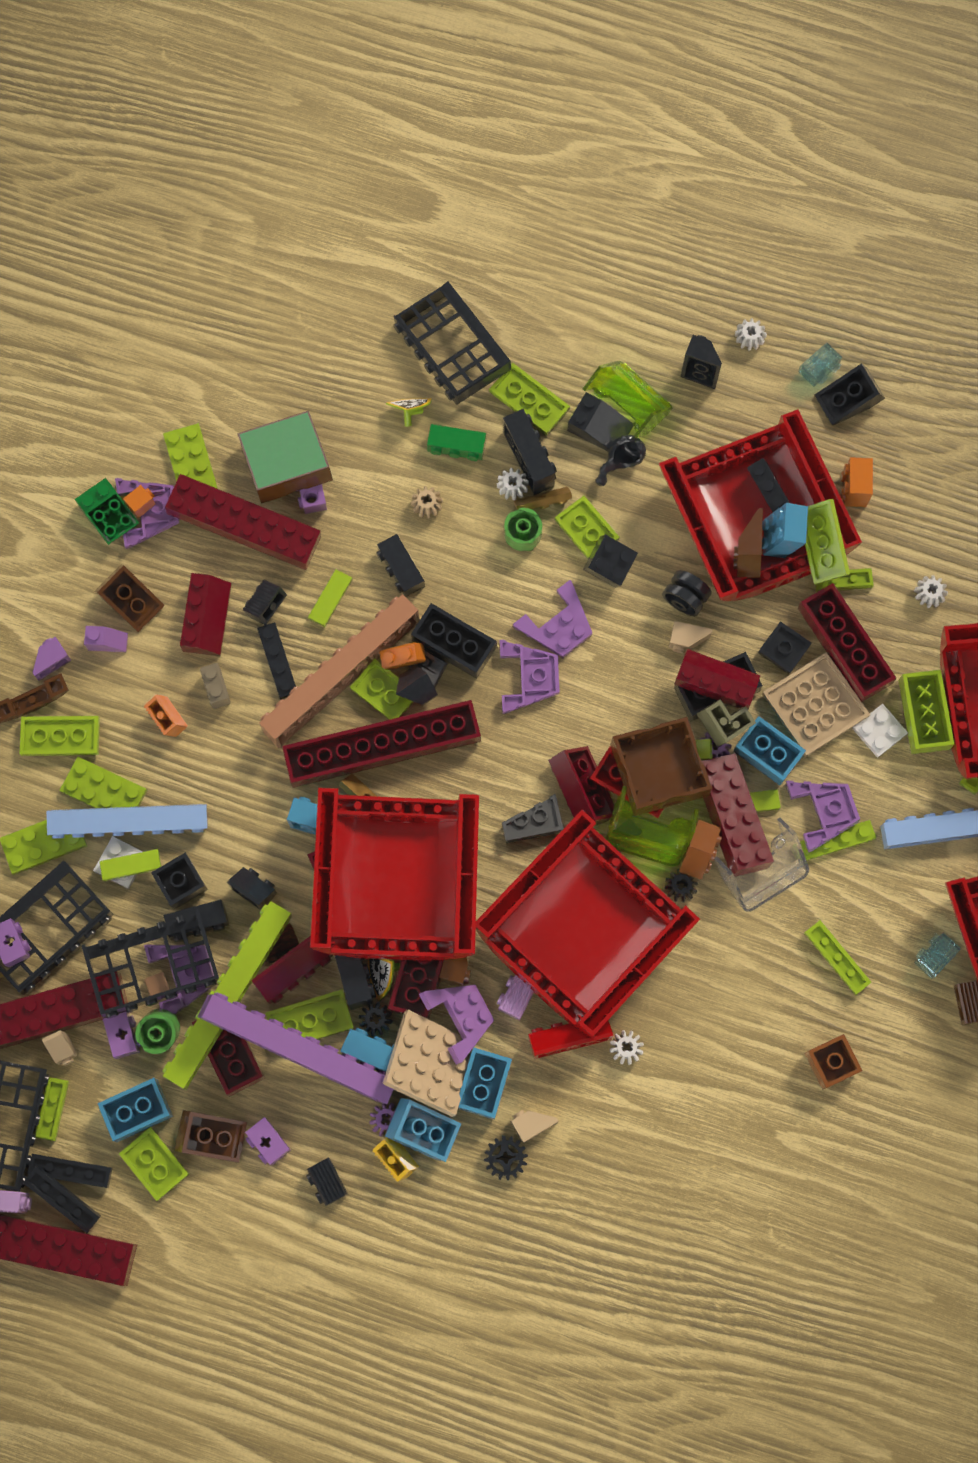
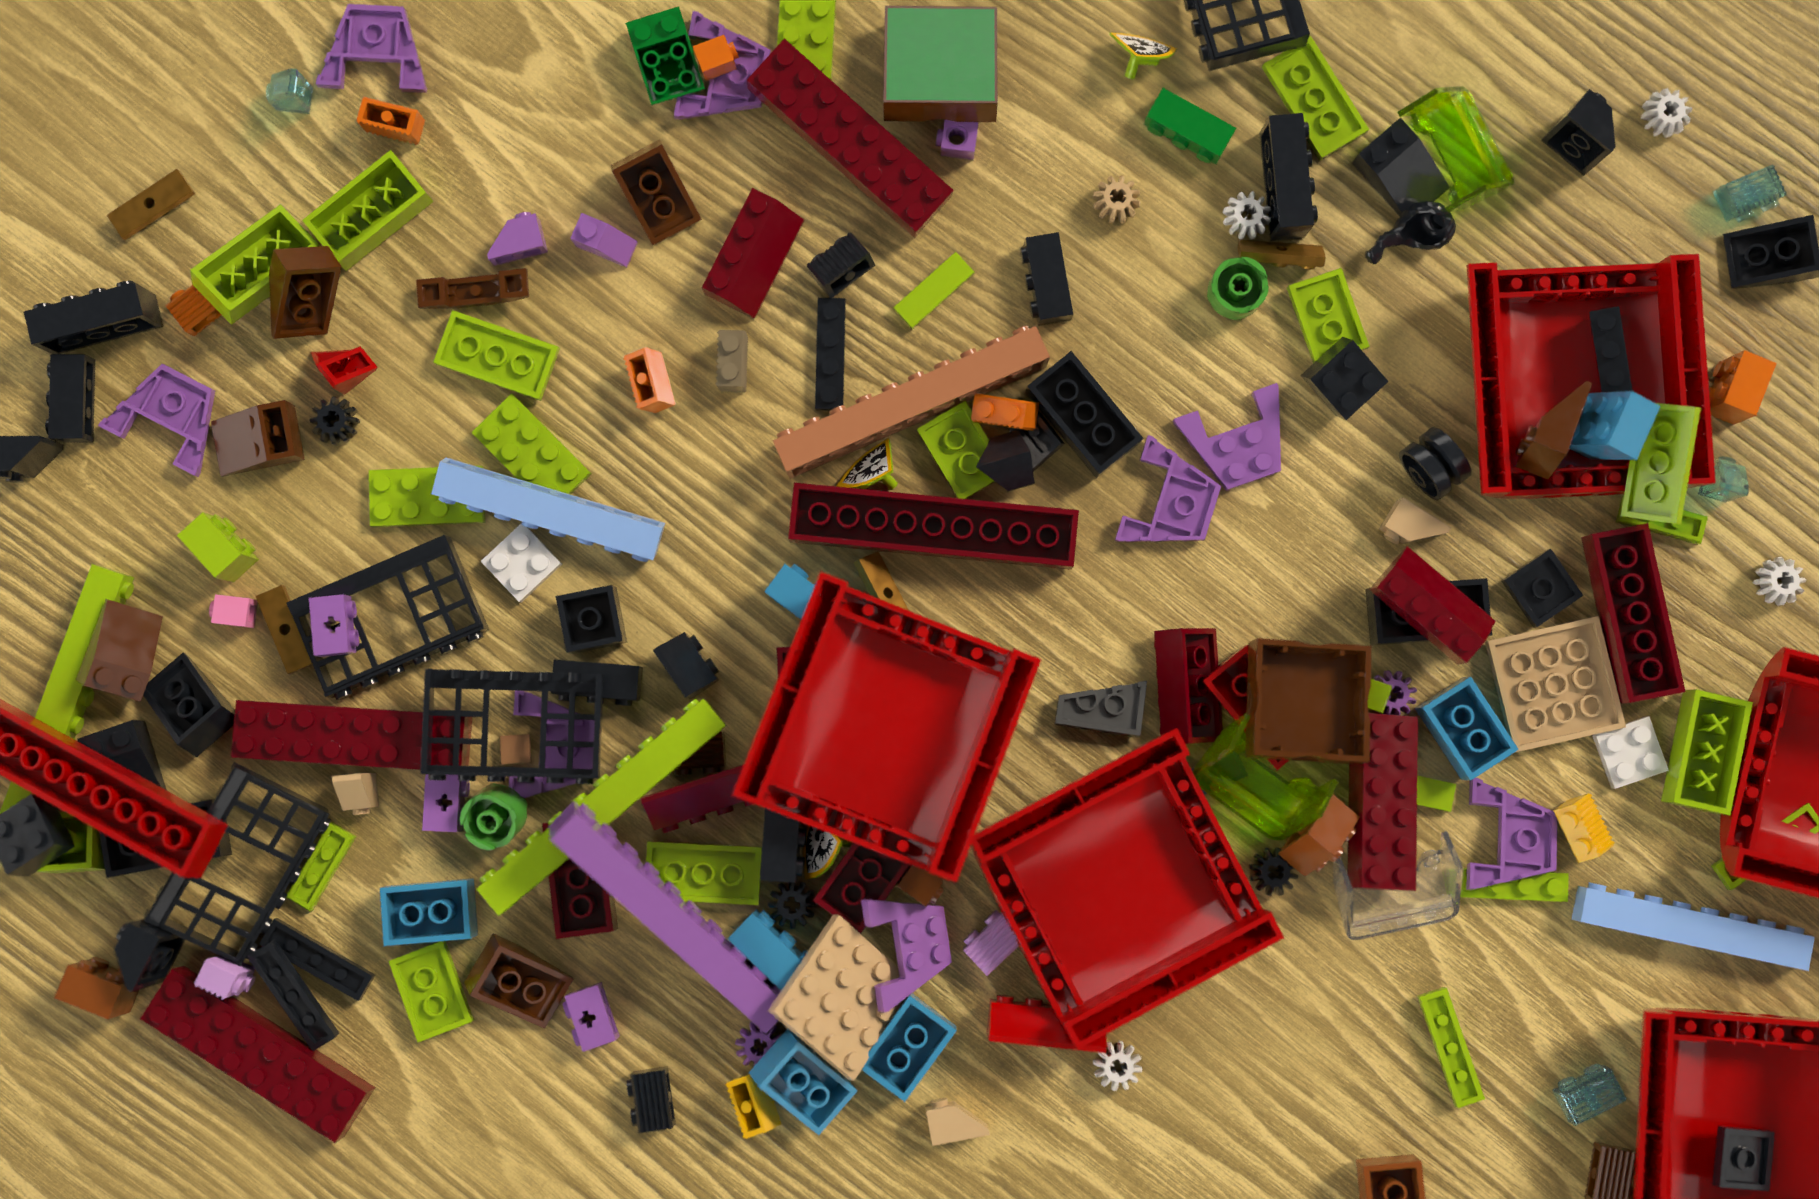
camera: 20 degrees right, 10 degrees up
(130, 865) = (532, 573): lime tile -> none
(330, 721) = (871, 468): none -> shield
(506, 1167) = (888, 1152): black gear -> none
(722, 725) = (1419, 676): olive brick -> none
(867, 786) = (1583, 828): none -> yellow brick
(872, 542) = (1730, 481): none -> clear light blue slope

